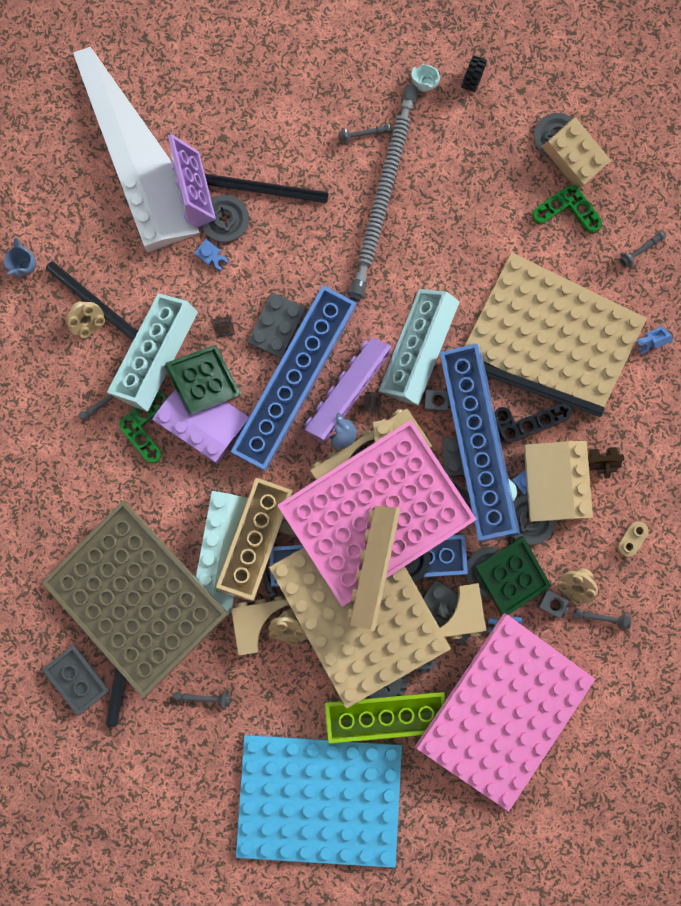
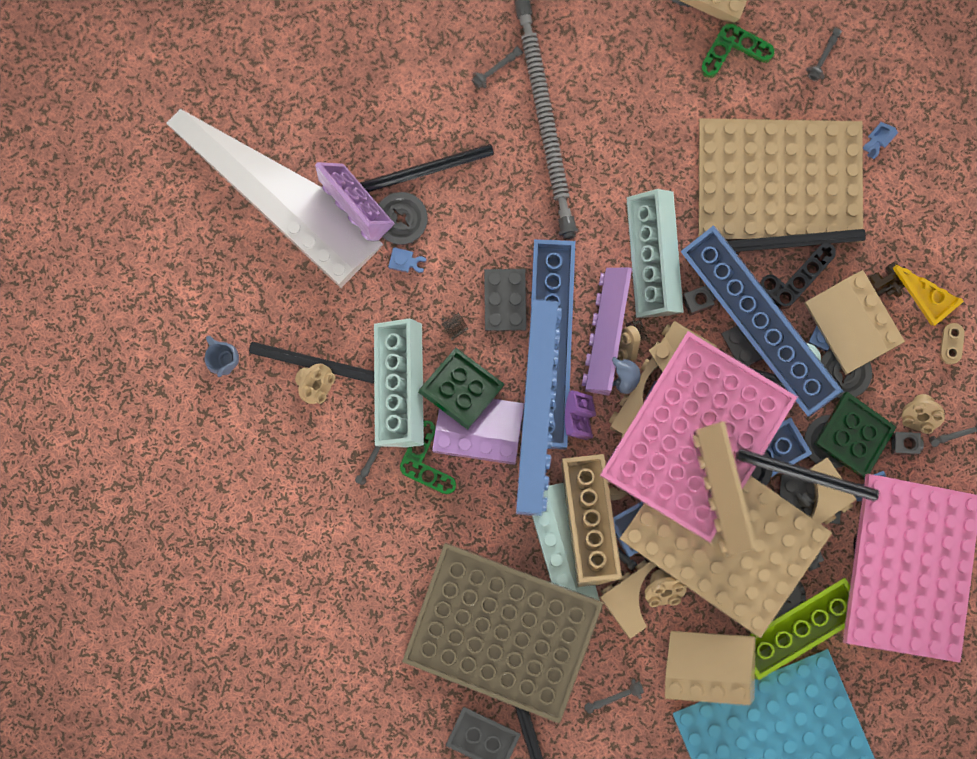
camera: 20 degrees left, 0 degrees up
(252, 424) = (537, 405): none -> medium blue brick
(288, 447) = (577, 414): none -> medium lavender slope
(293, 713) = (710, 668): none -> tan slope
(359, 409) = (629, 343): none -> tan plate
(452, 589) = (807, 474): none -> black axle
(632, 493) = (932, 300): none -> yellow wing

